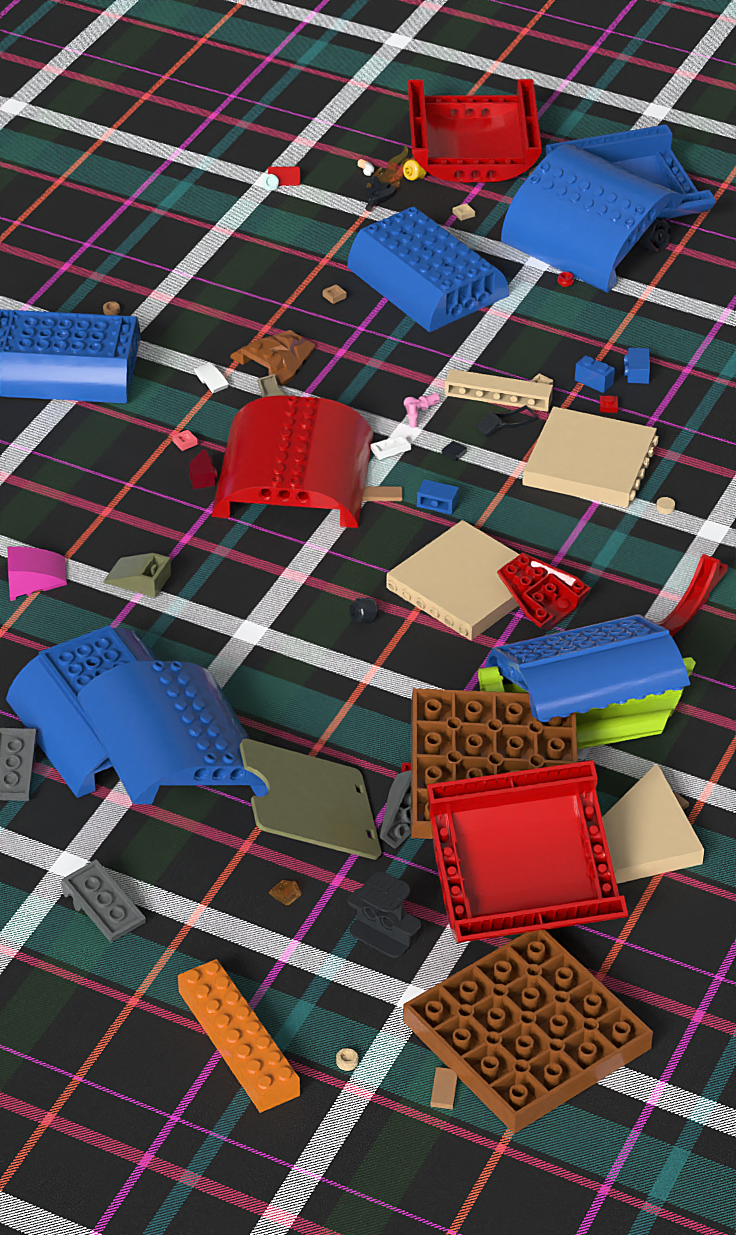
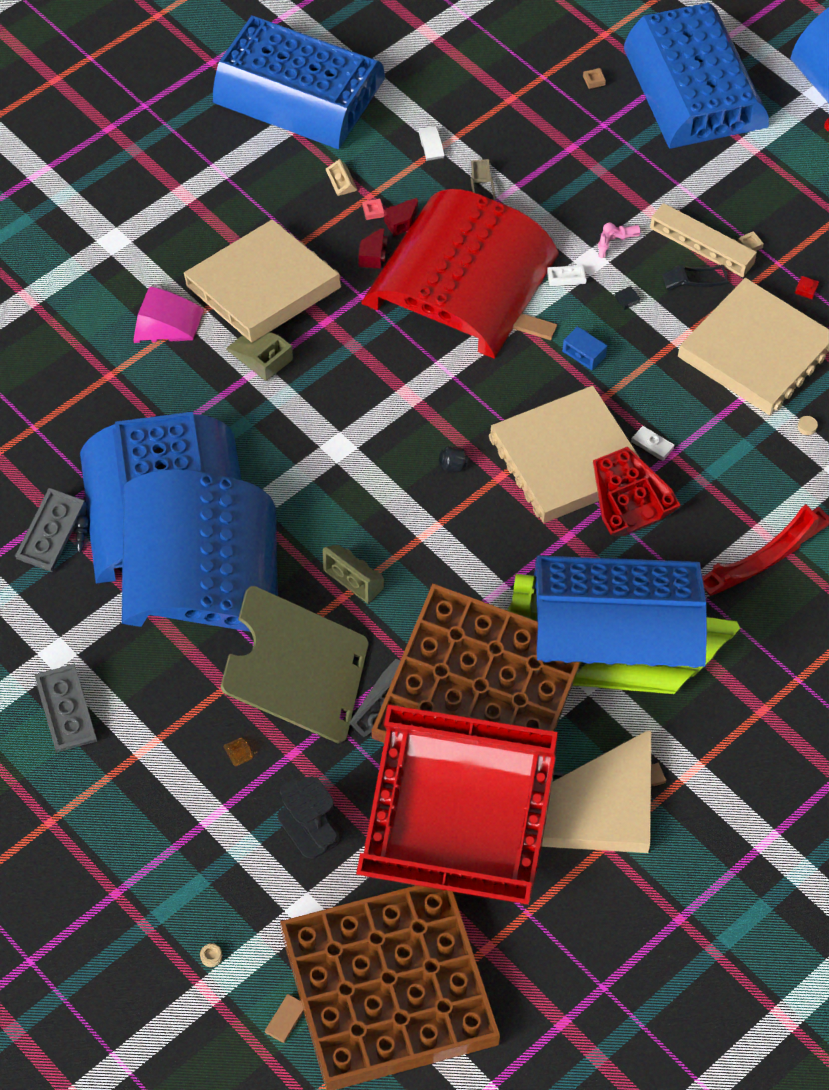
camera: 20 degrees right, 15 degrees up
(41, 759) = (80, 529): none -> black bar
(111, 308) = (373, 35): medium nougat tile -> none
(112, 516) = (262, 280): none -> tan brick
(140, 424) = (341, 178): none -> tan slope
(213, 439) = (401, 216): none -> dark red slope
(239, 1035) = (121, 897): orange brick -> none
(279, 353) = (507, 134): dark orange wedge -> none
(319, 722) = (352, 572): none -> olive slope
(463, 211) = (769, 13): tan tile -> none
(539, 552) = (652, 443): none -> white plate
(594, 374) = (807, 249): blue brick -> none

